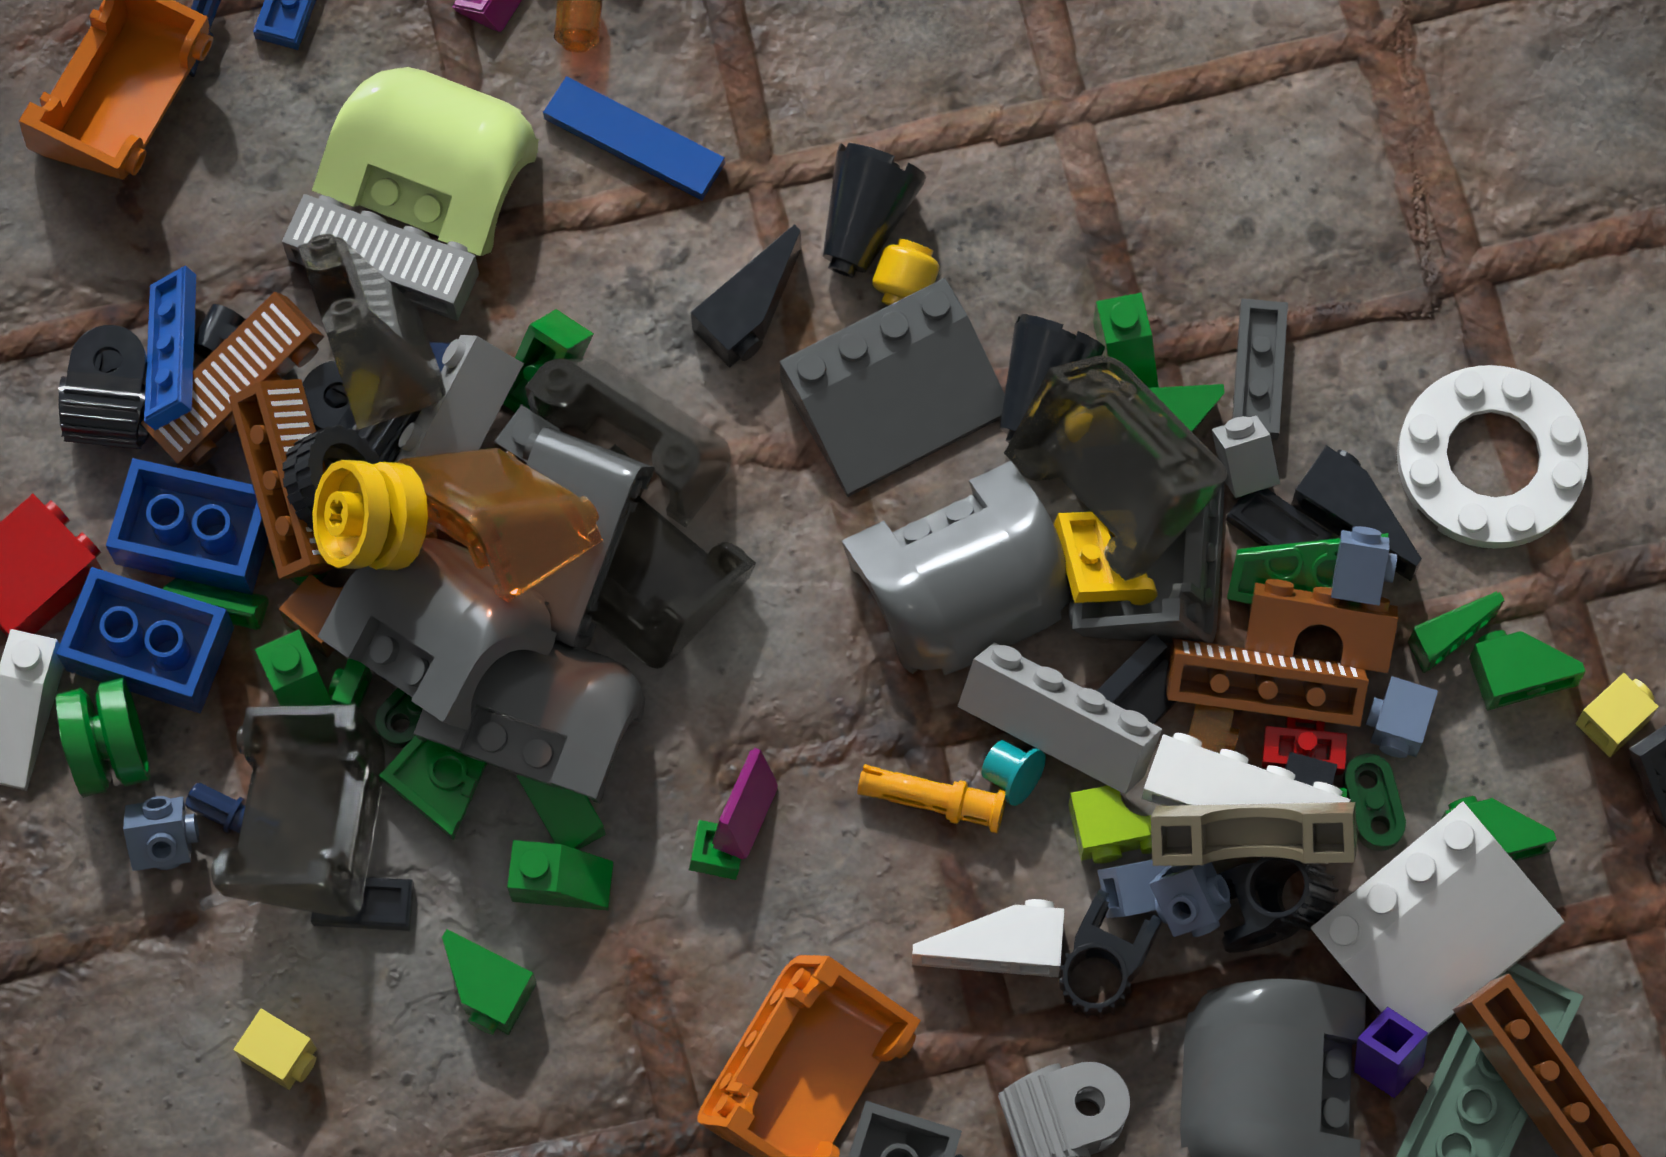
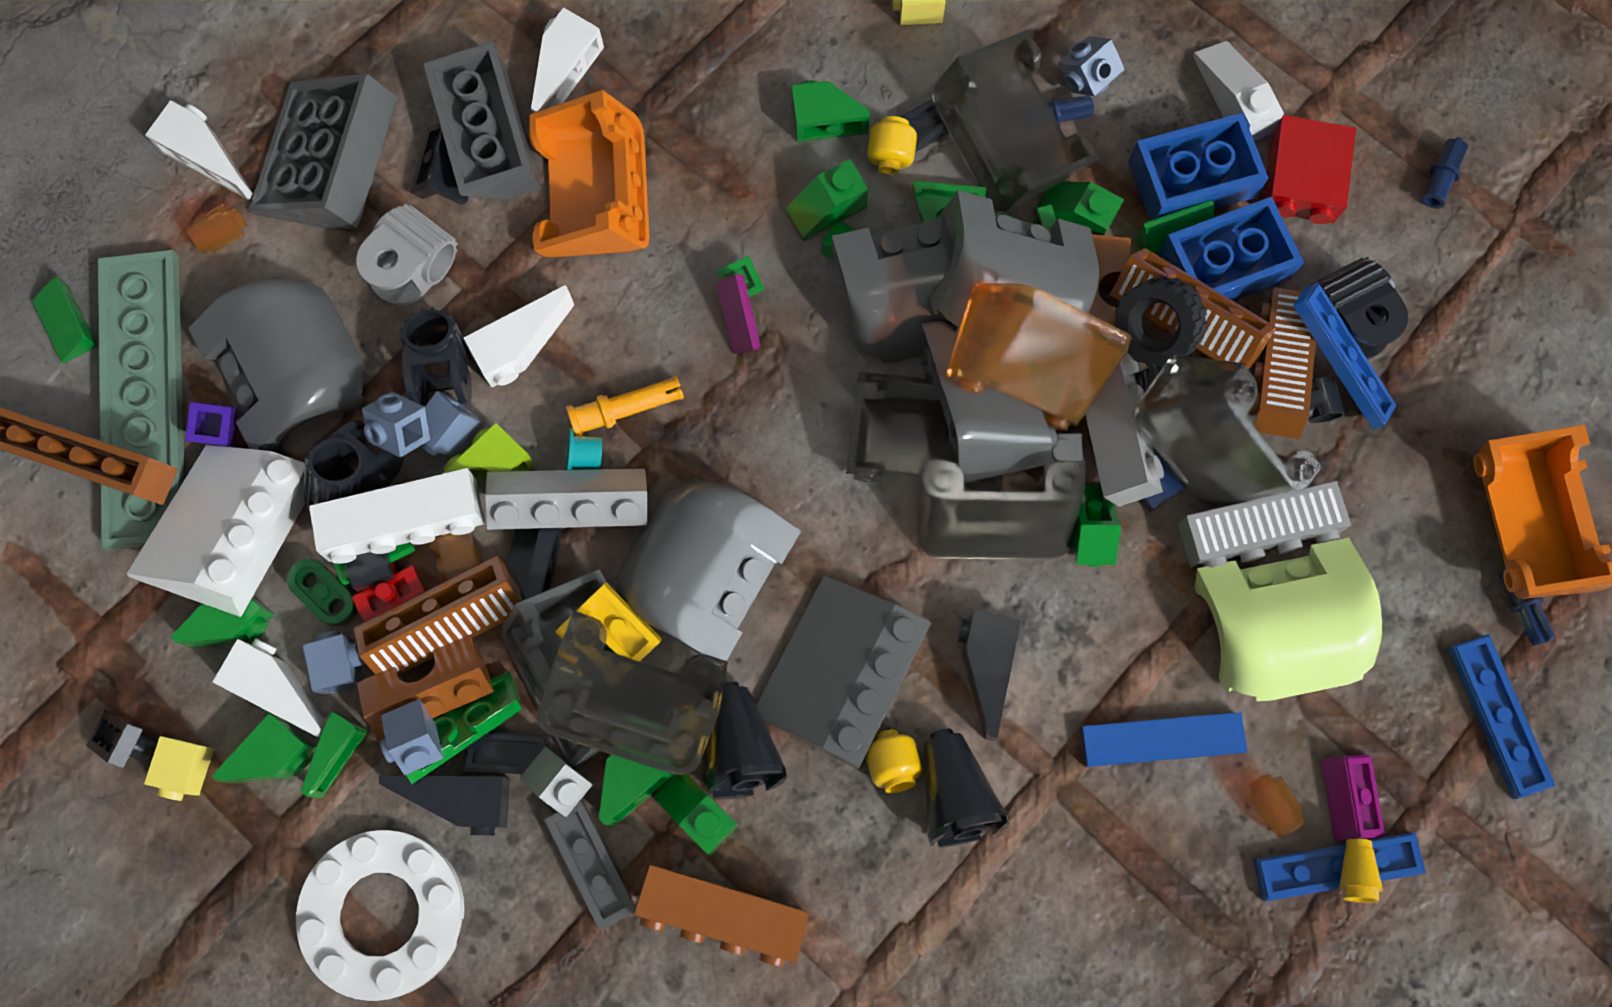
camera: 145 degrees right, 5 degrees up
(94, 739) = (1171, 88): green wheel -> none
(370, 515) = (1113, 284): yellow wheel -> none
(442, 891) = (892, 145): none -> yellow head
(1164, 243) = (721, 914): none -> dark orange brick
(1284, 830) = (320, 496): dark tan arch -> none
(1483, 741) = (268, 683): none -> white slope

